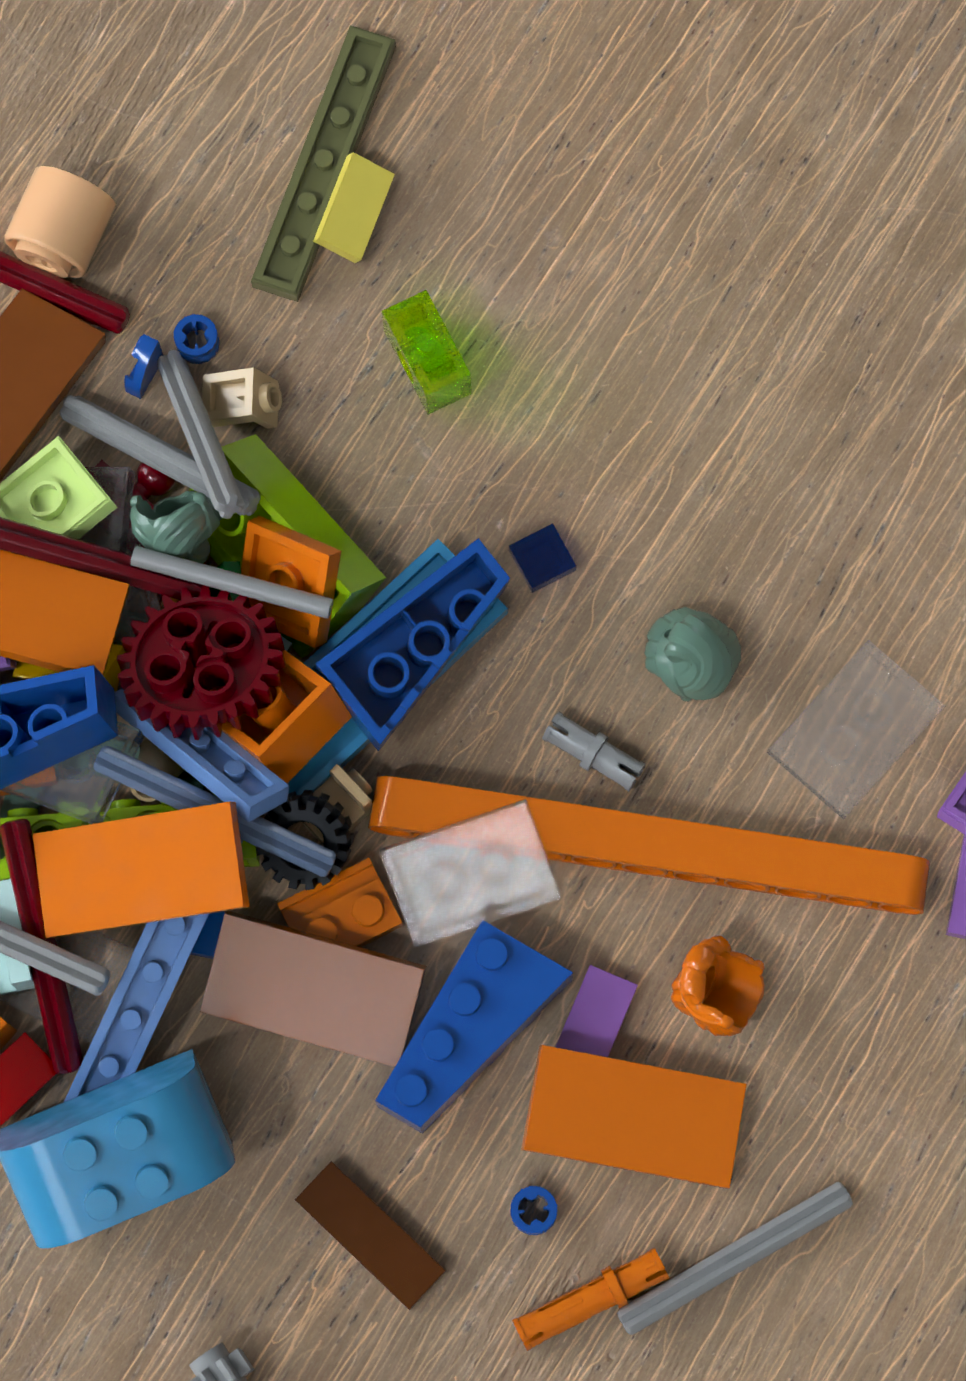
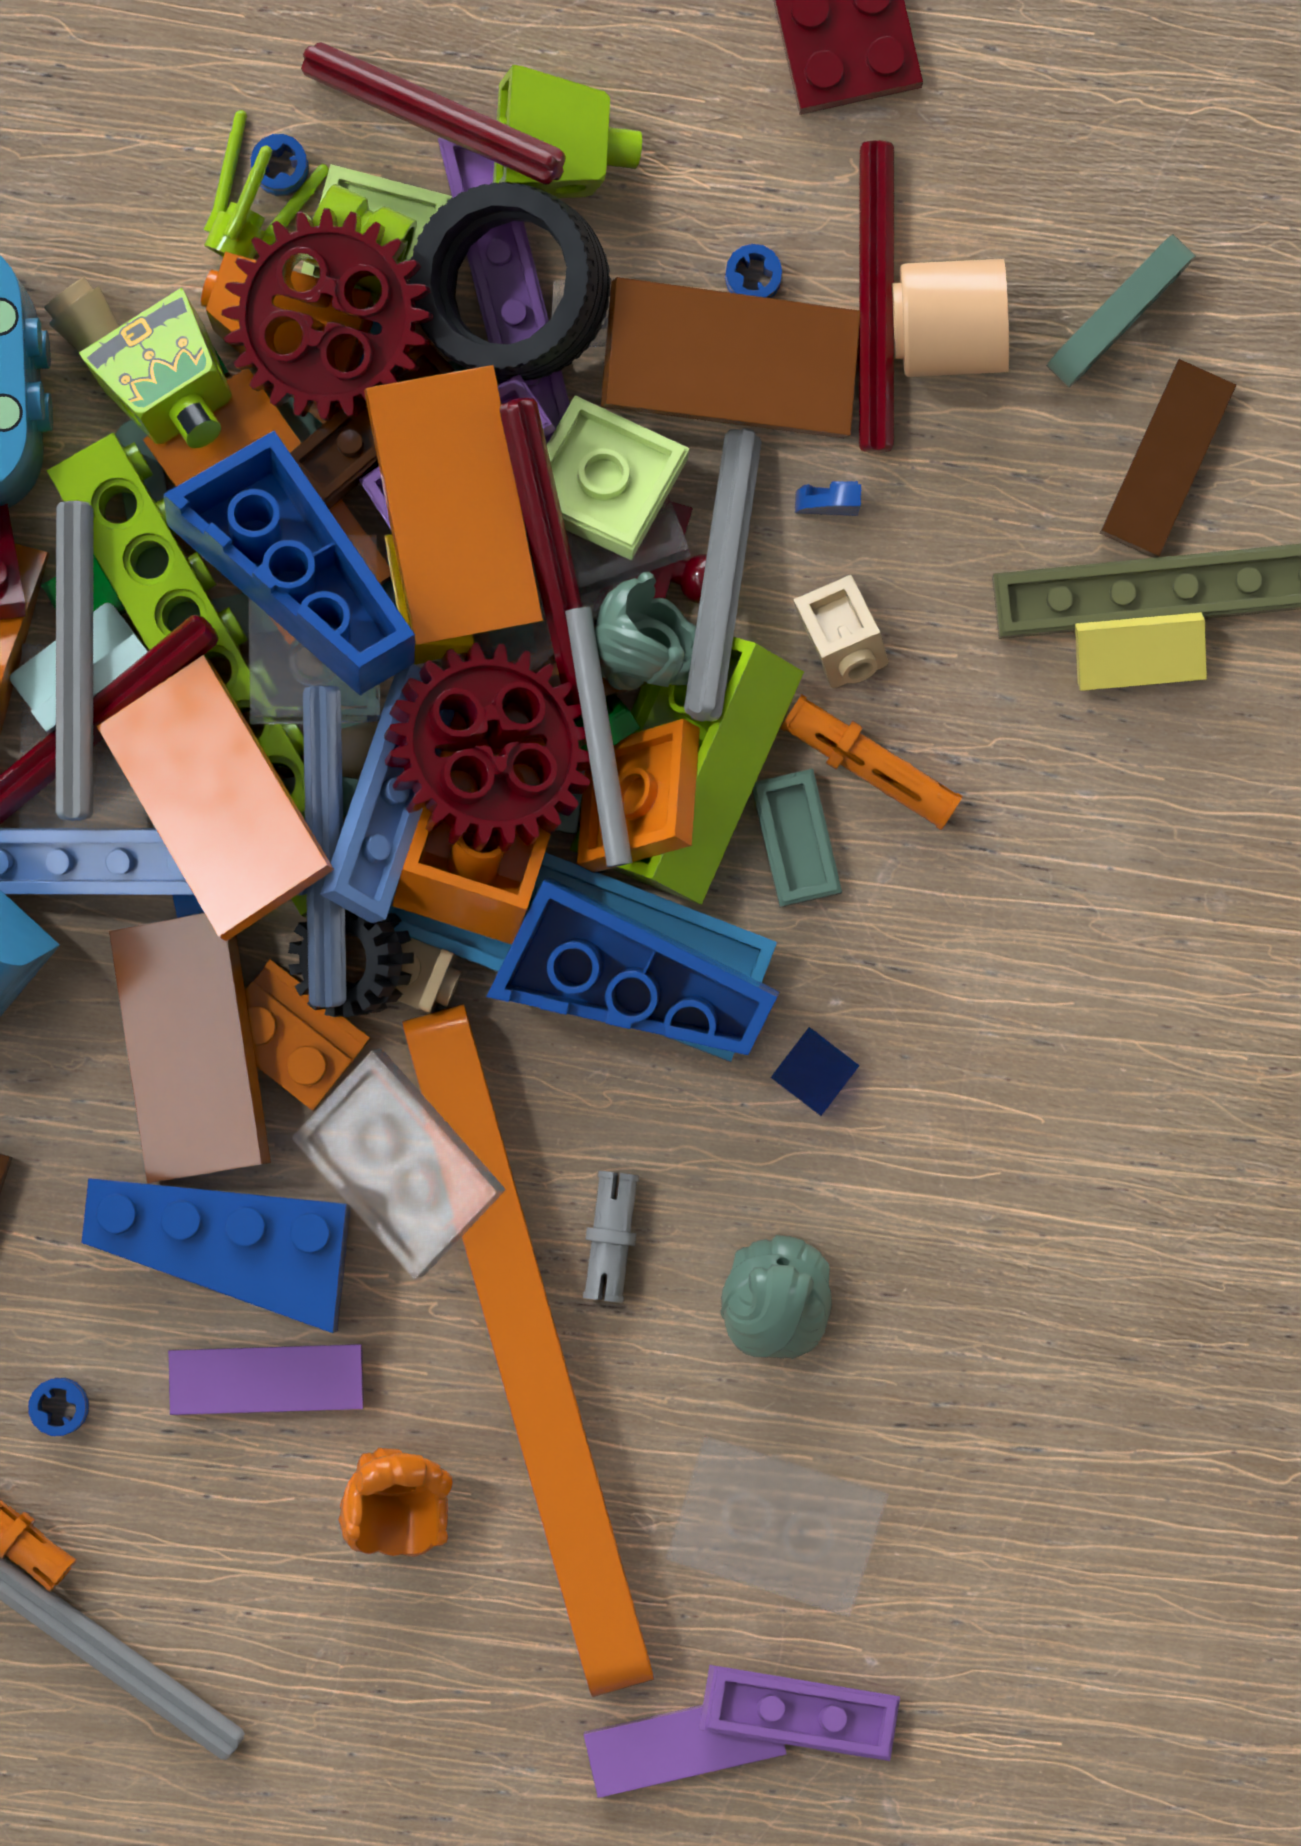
camera: 60 degrees right, 10 degrees up
(112, 117) = (1121, 310): none -> sand green beam
(194, 323) = (882, 528): blue bush -> none
(200, 434) = (762, 612): light grey axle -> none
(230, 134) = (1168, 459): none -> reddish brown tile
(371, 497) = (796, 838): none -> sand green tile
(391, 392) = (871, 761): none -> orange pin
(427, 352) = (995, 824): clear neon green brick -> none
(634, 1117) = (207, 1473): orange tile -> none

